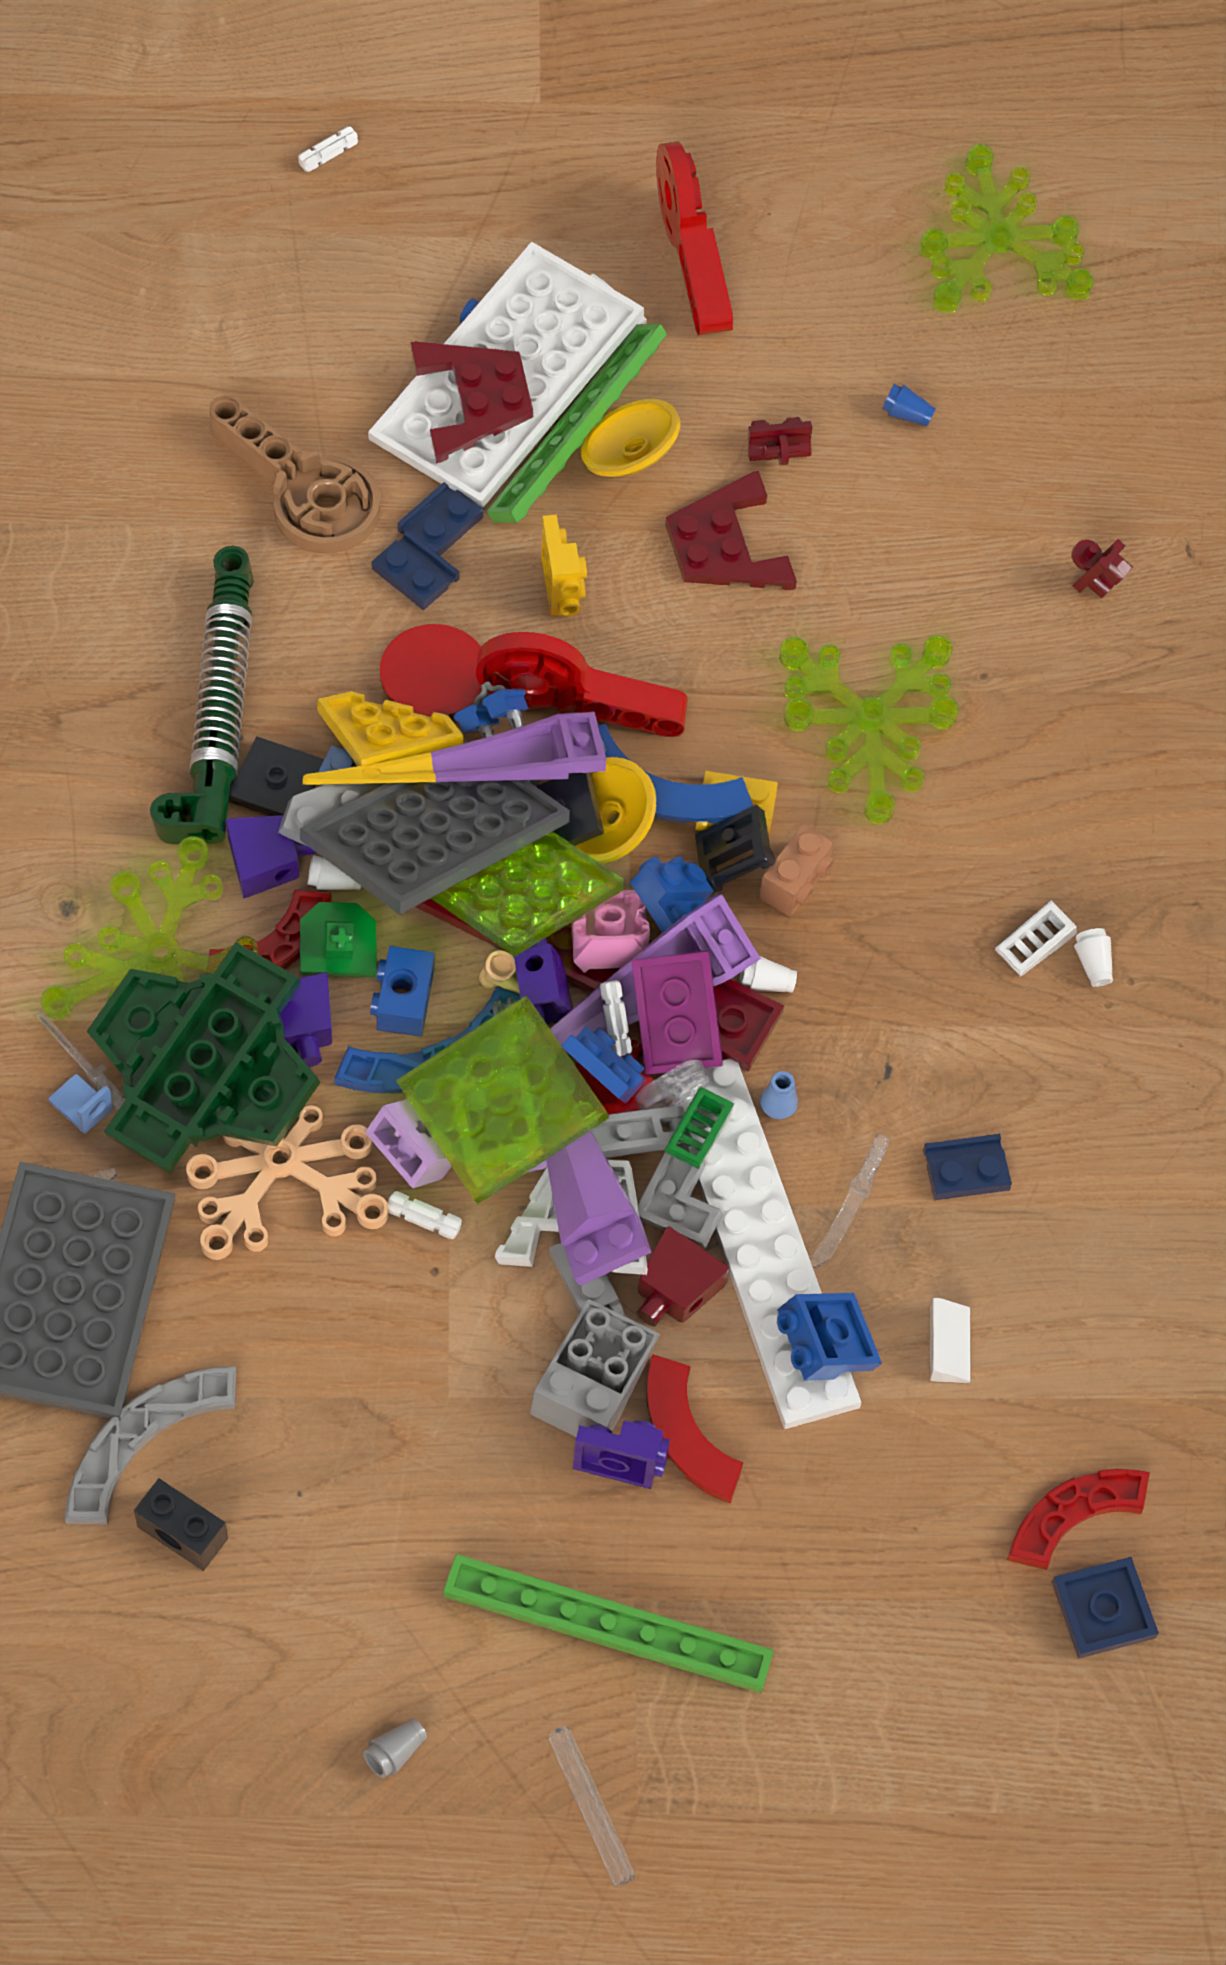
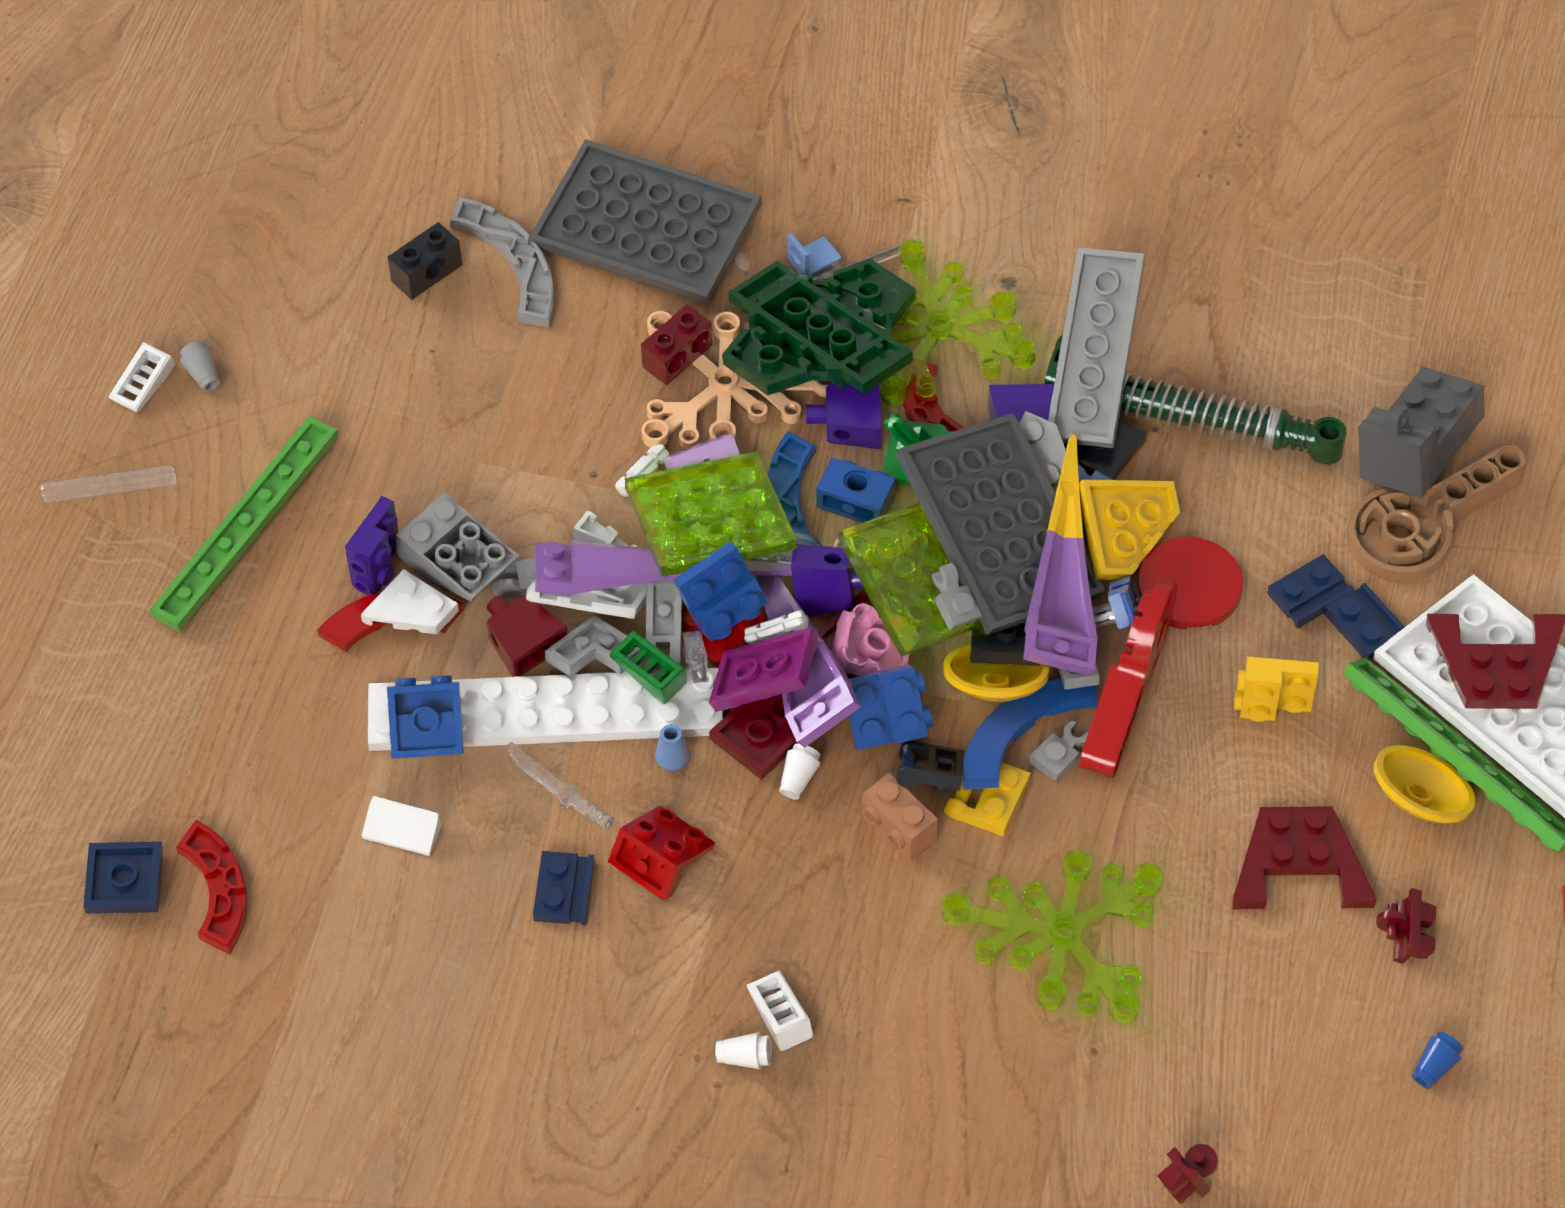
camera: 110 degrees right, 5 degrees down
(184, 768) = (1096, 345): none -> light grey plate
(214, 482) = (1419, 431): none -> dark grey hinge
(255, 1204) = (676, 344): none -> dark red brick
(407, 1828) = (143, 356): none -> white slope
(547, 845) = (954, 602): none -> light grey plate
(671, 756) = (1058, 754): none -> light grey plate
(679, 1402) = (411, 605): none -> white wing
(899, 1078) = (657, 849): none -> red bracket

